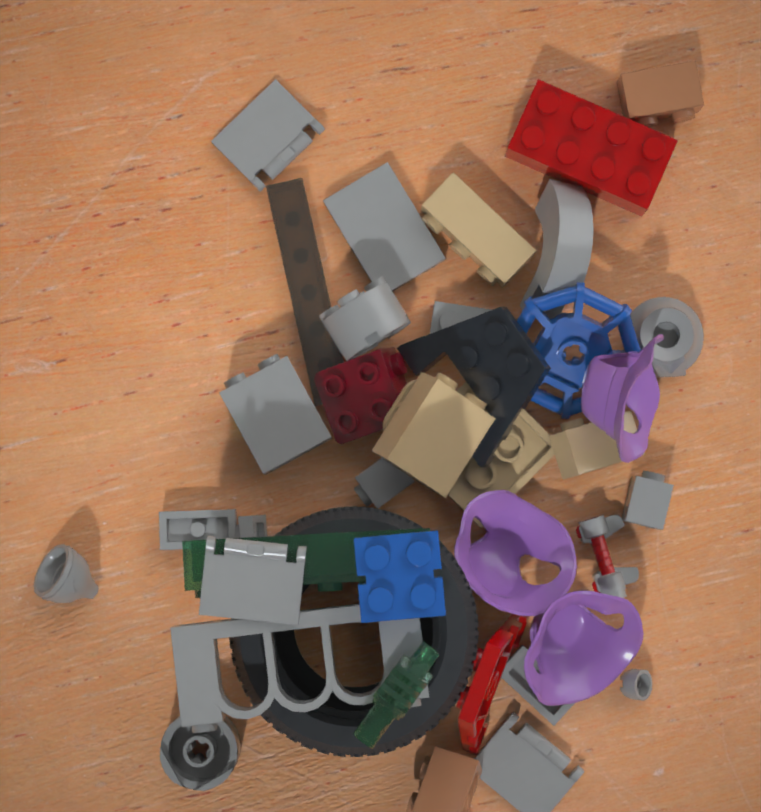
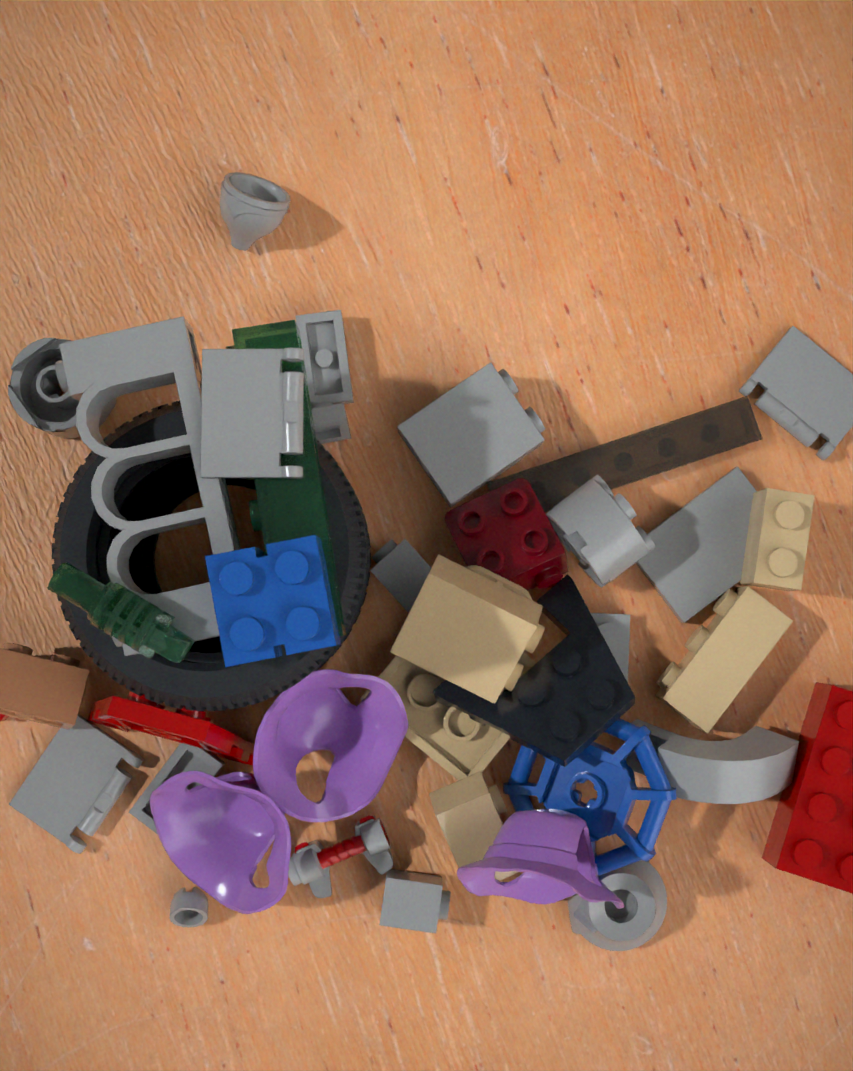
camera: 85 degrees right, 0 degrees up
(387, 177) = (777, 539): none -> tan brick

